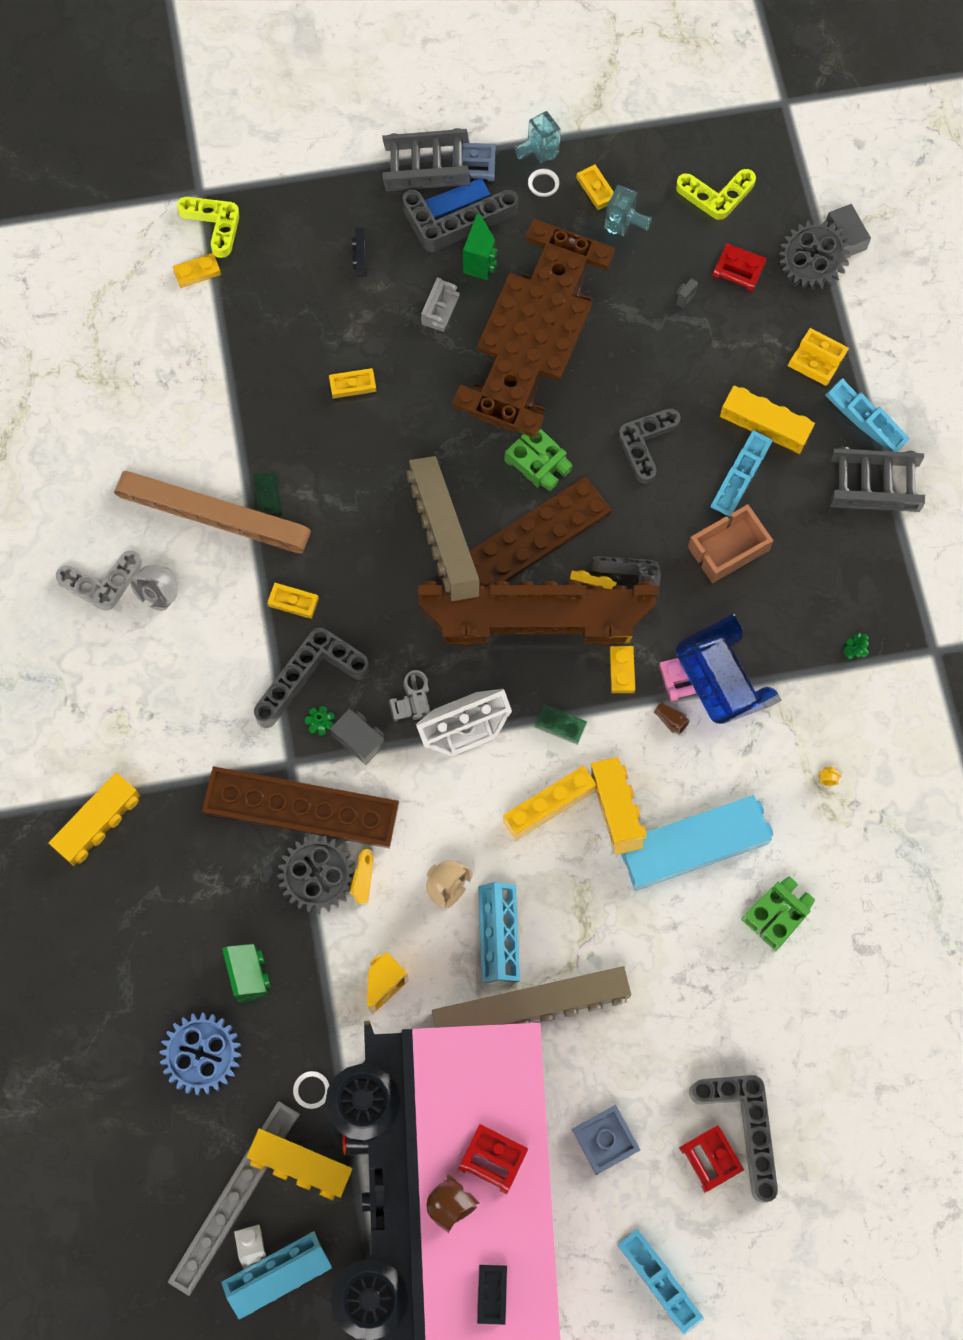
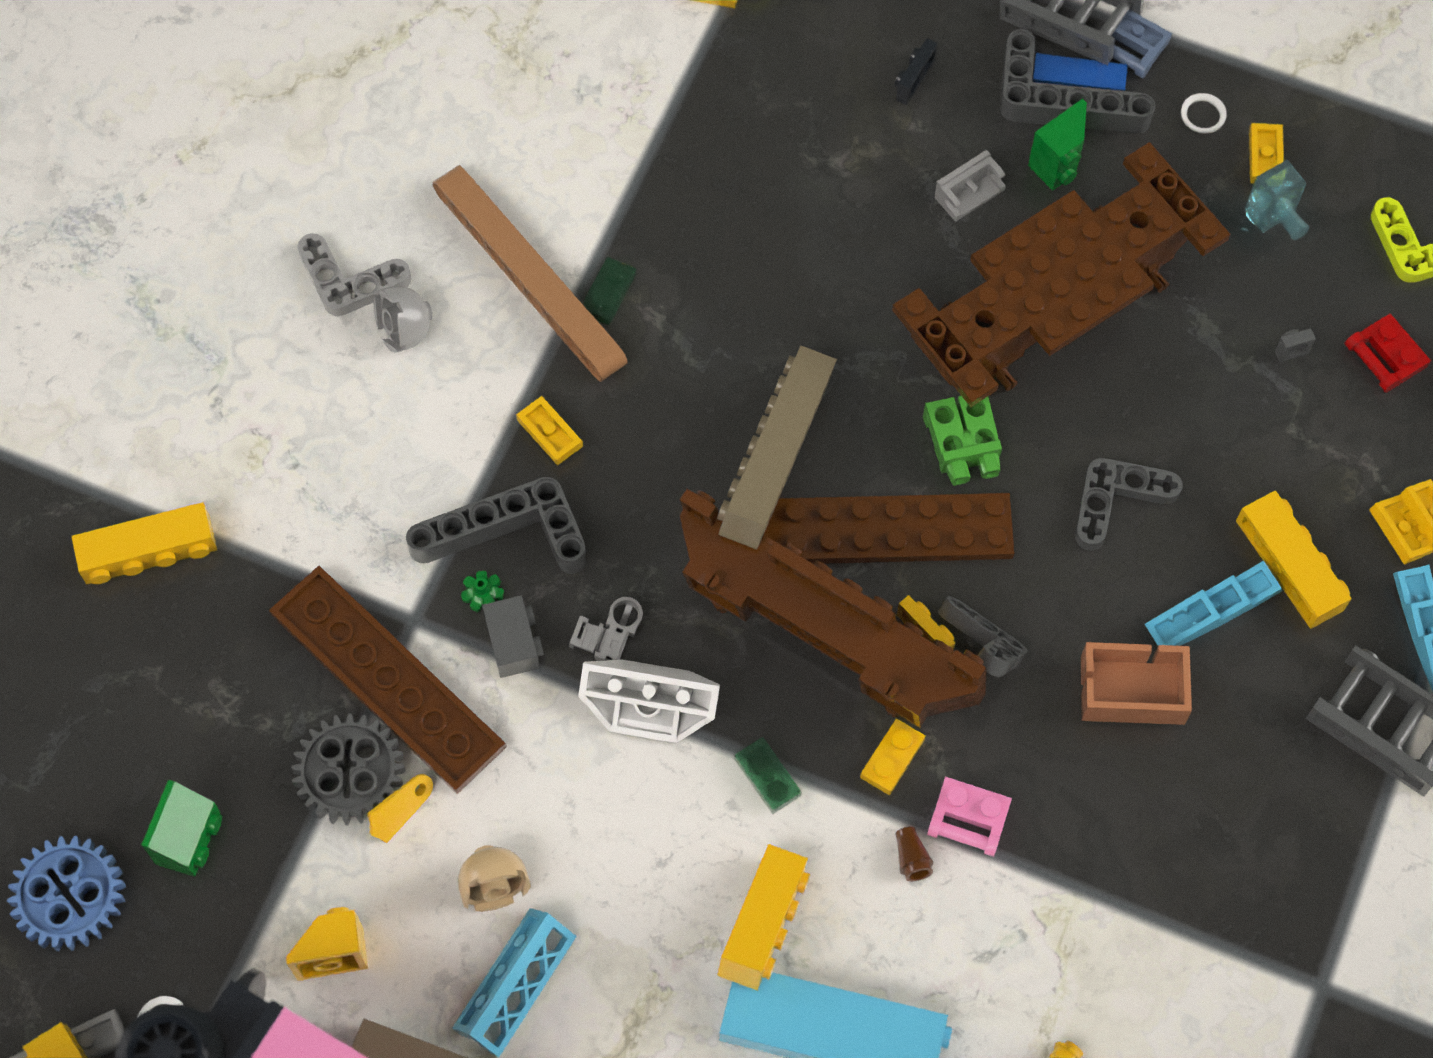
camera: 35 degrees right, 5 degrees down
(352, 383) = (799, 218): yellow plate -> none
(542, 138) = (1235, 56): clear light blue brick -> none
(549, 803) = (684, 861): yellow brick -> none
(719, 675) = (1010, 835): clear blue windscreen -> none
(856, 646) = (1217, 914): green plant -> none

